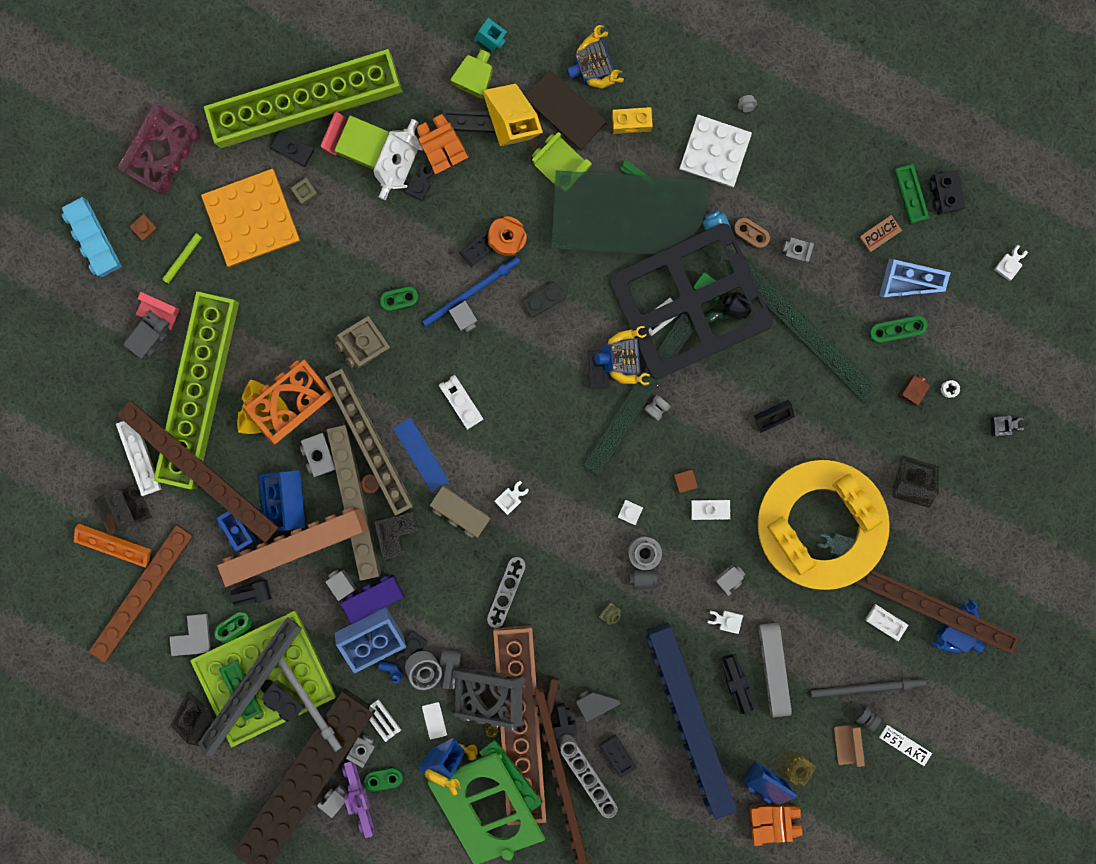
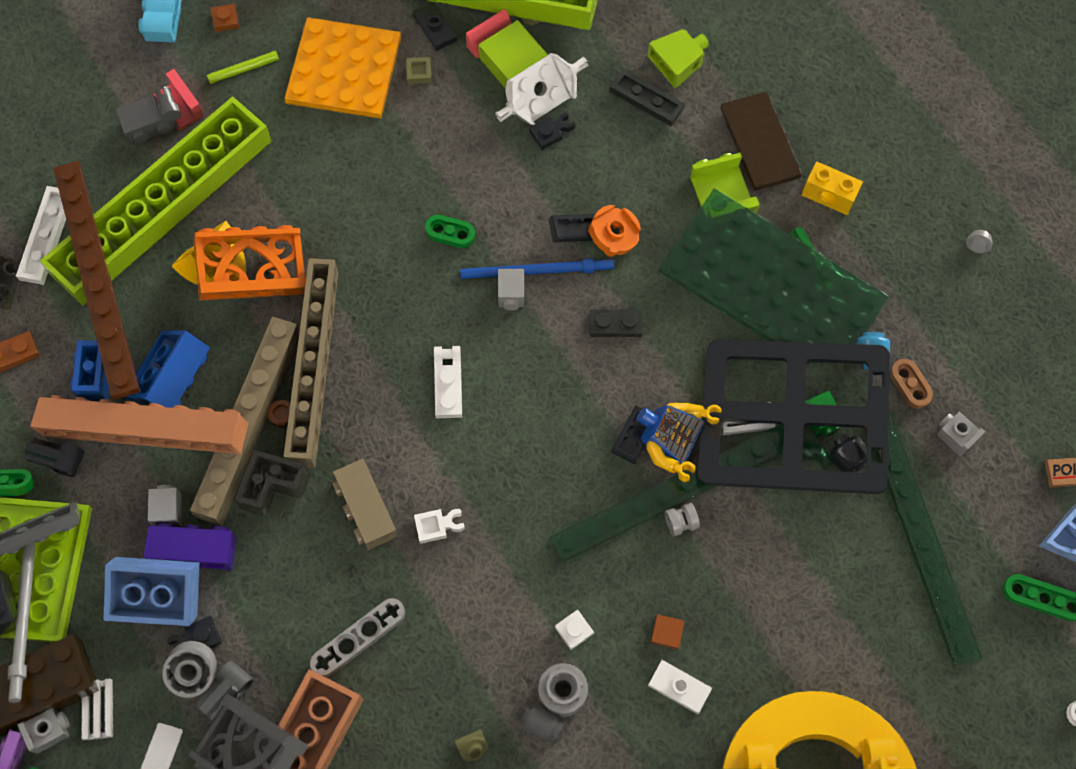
camera: 30 degrees right, 20 degrees down
(320, 443) = (242, 330): light grey brick -> none
(361, 343) = (375, 252): dark tan plate -> none
(393, 669) = (155, 651): blue arm -> none
(421, 454) = (362, 415): blue sticker -> none
(442, 137) = (601, 91): orange hips -> none
(491, 35) = (720, 27): teal brick -> none
(511, 115) = (696, 112): yellow slope -> none
(594, 63) = (821, 108): torso -> none
(715, 151) = (913, 273): white plate -> none
(774, 416) = (827, 614): black plate -> none
(914, 390) = (1031, 685): copper brick -> none

